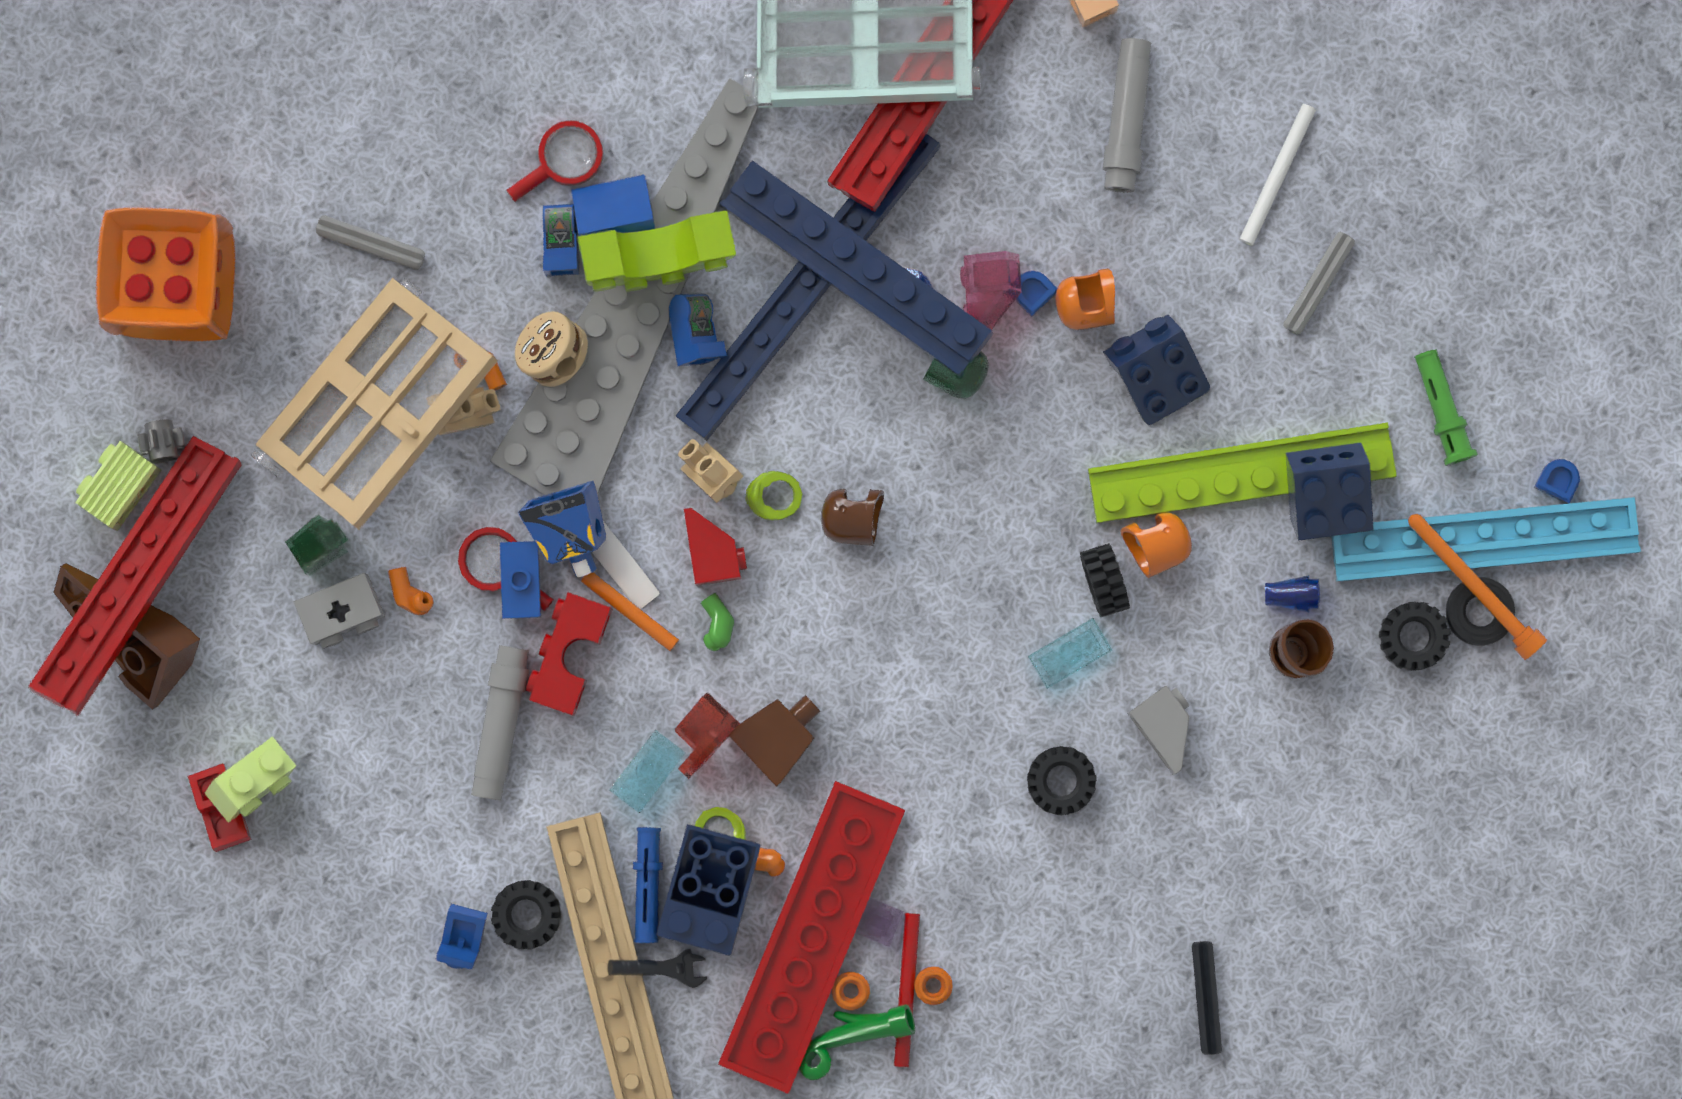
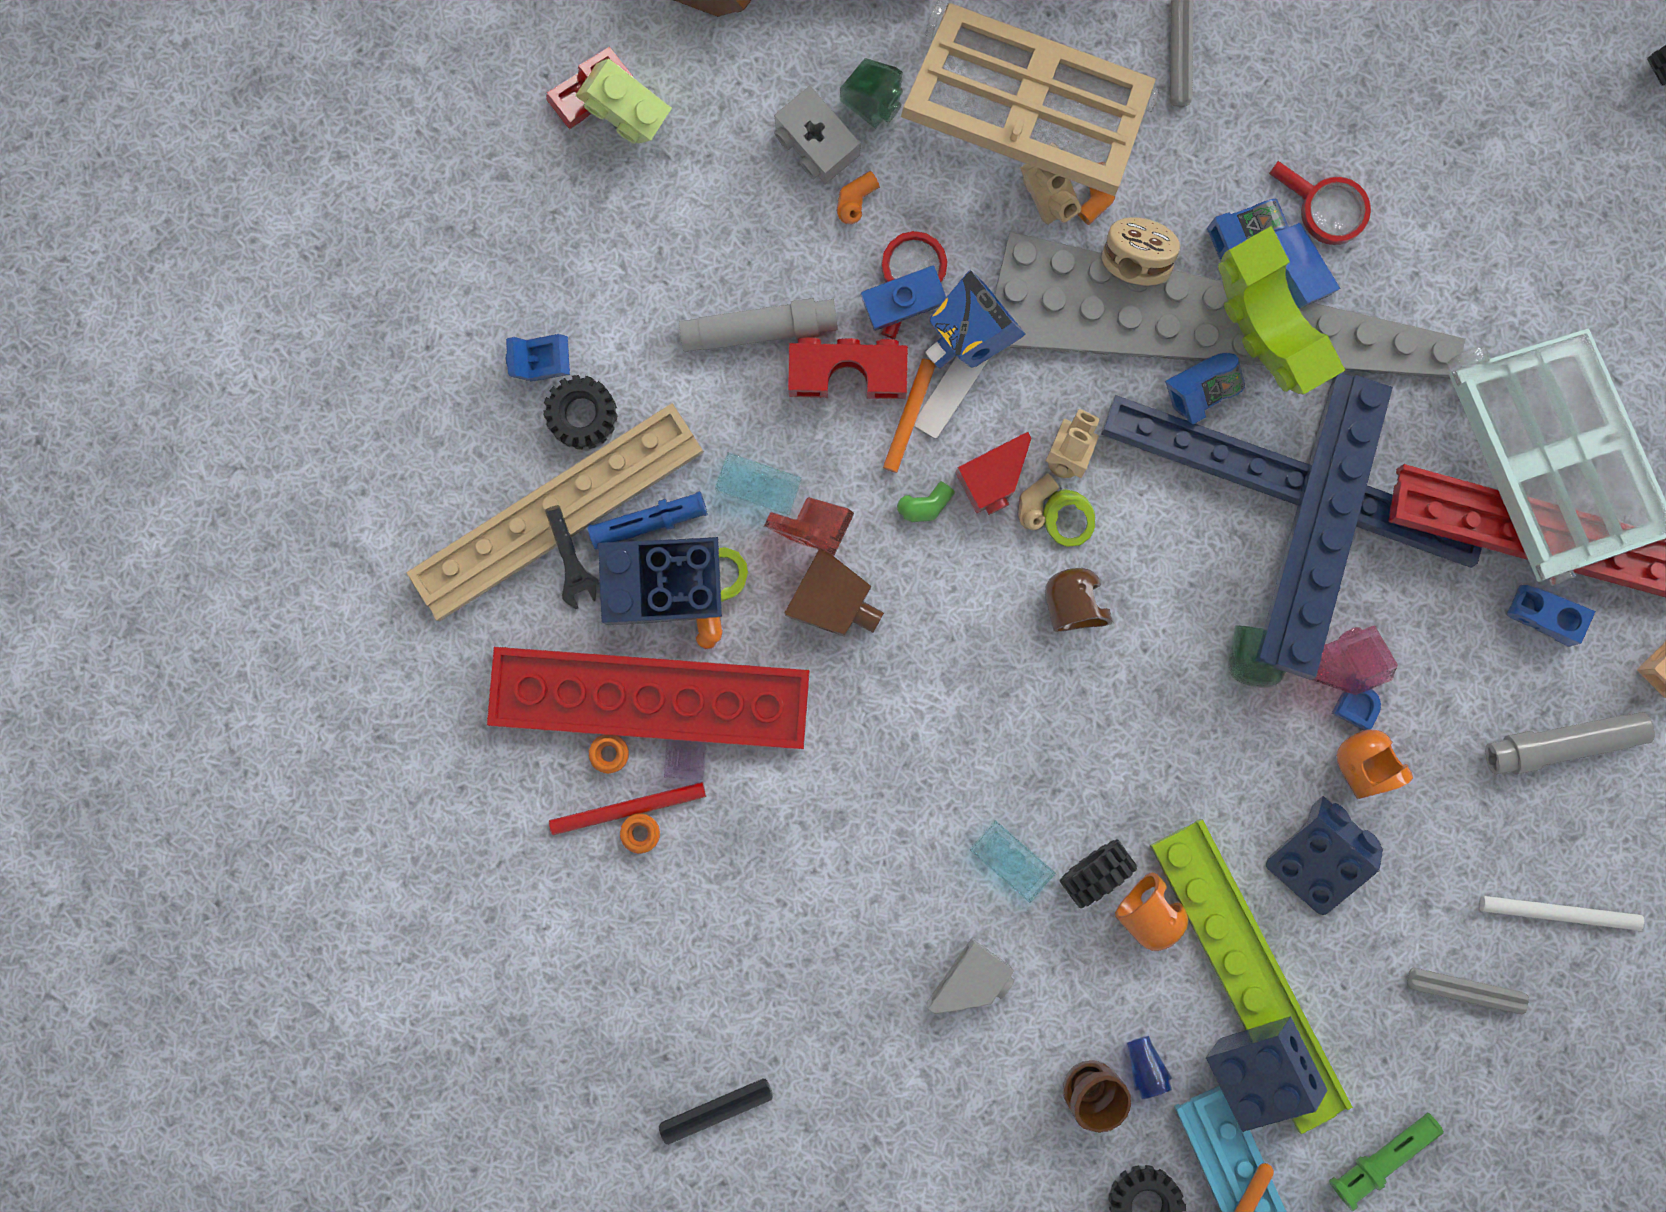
camera: 70 degrees right, 0 degrees up
(747, 524) = (1031, 502): none -> tan arm
(860, 1028) = (575, 775): green plant -> none
(1006, 92) = (1551, 615): none -> blue leg
(1084, 786) = (883, 919): black tyre -> none

